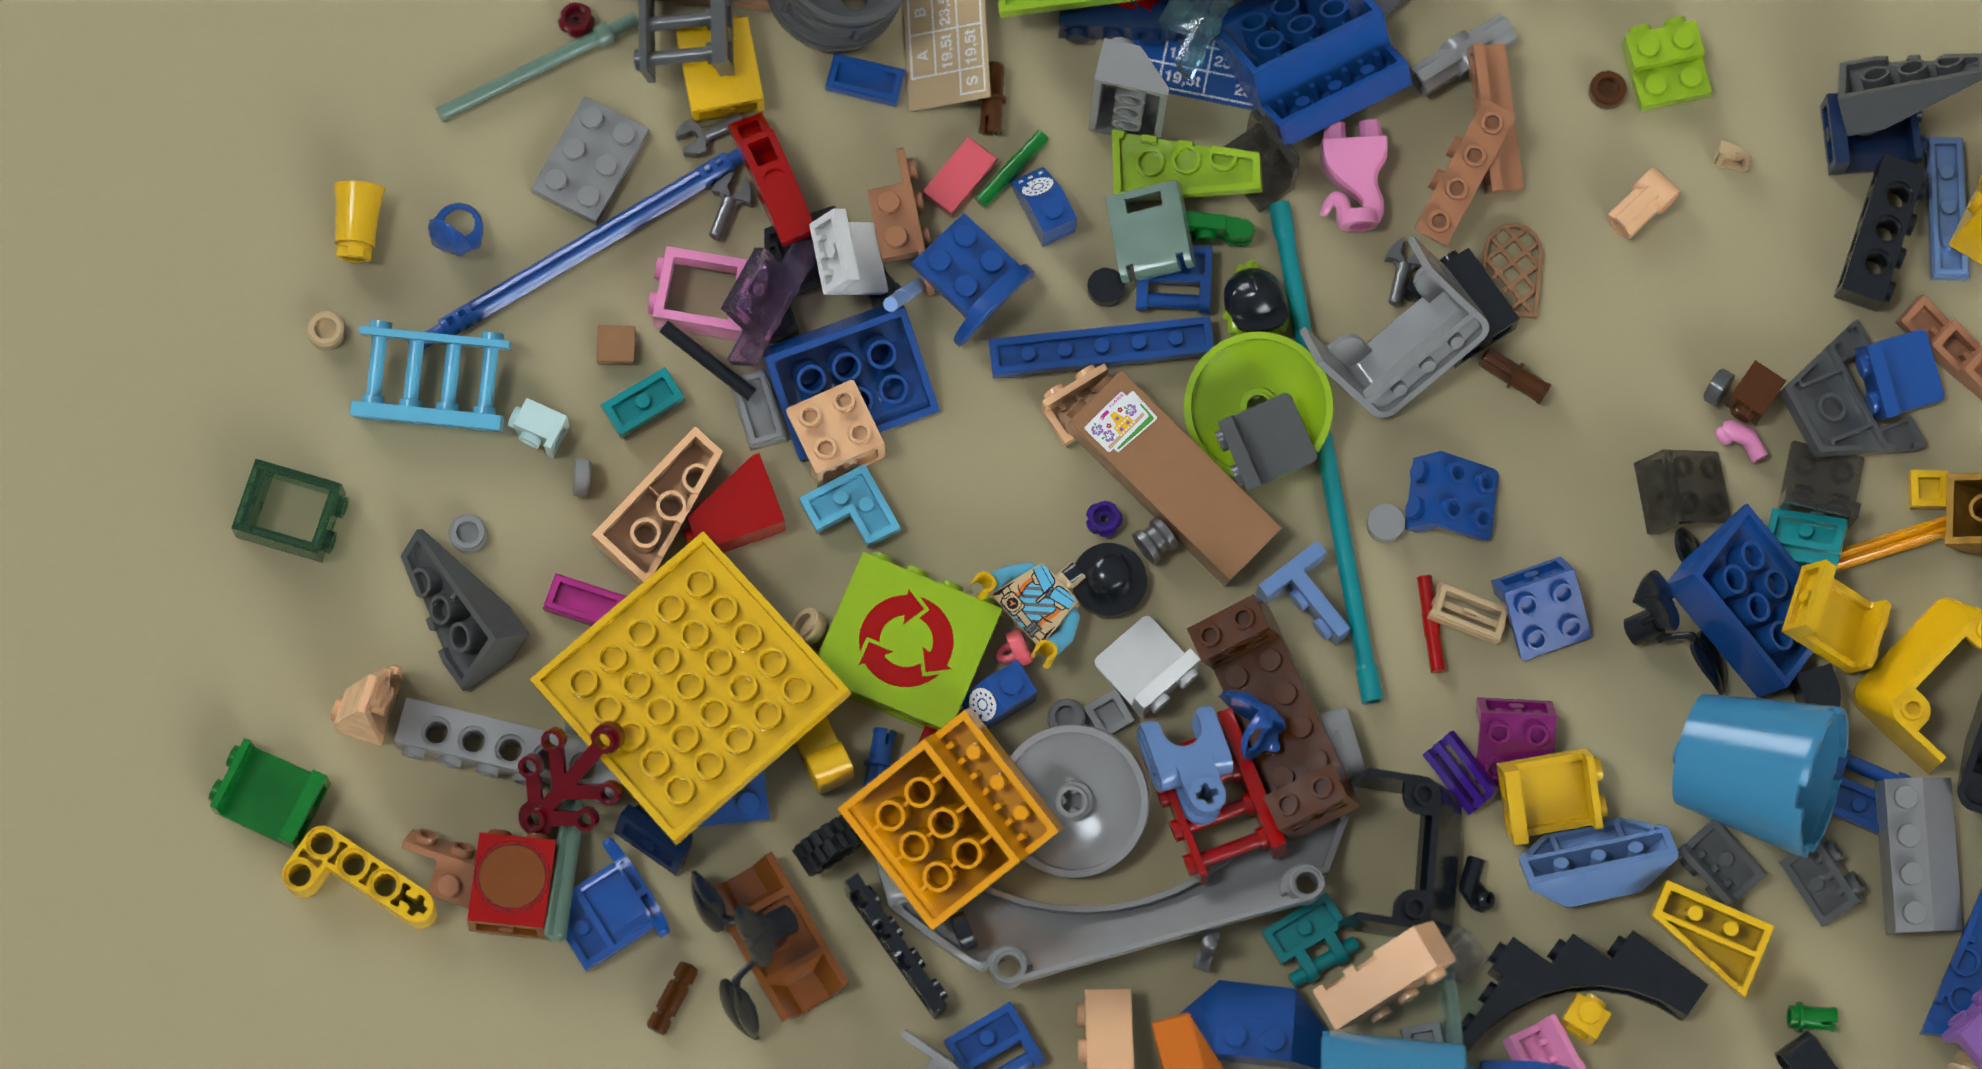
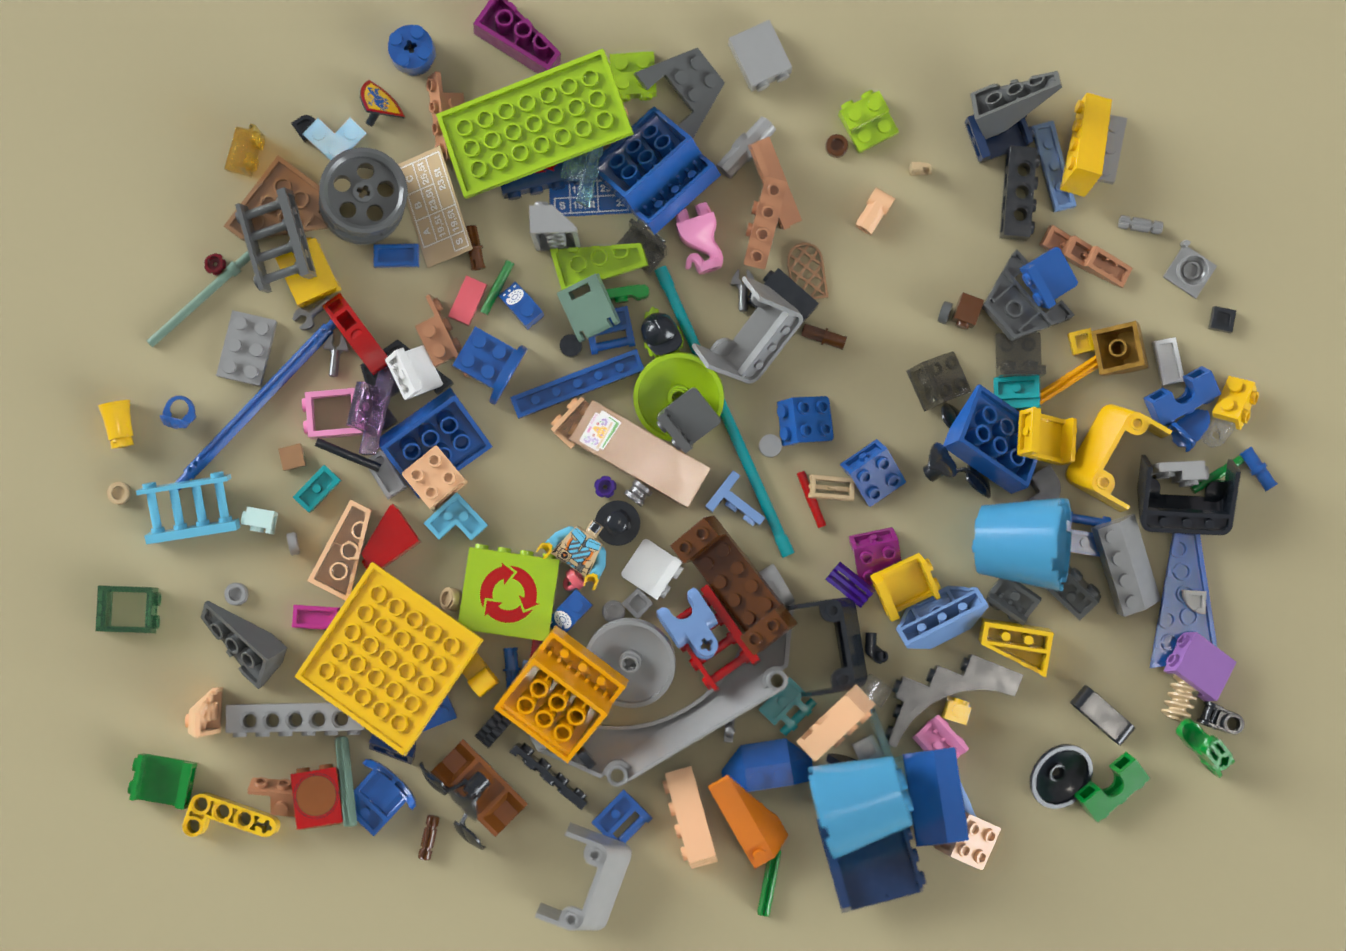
camera: 10 degrees left, 10 degrees up
(566, 783) = (323, 752): dark red plant -> none
(904, 295) = (452, 386): light blue piece -> none
(1261, 716) = (730, 592): blue piece -> none
(1743, 435) = (966, 337): bright pink arm -> none
(1811, 1017) = (1086, 675): green pin -> none

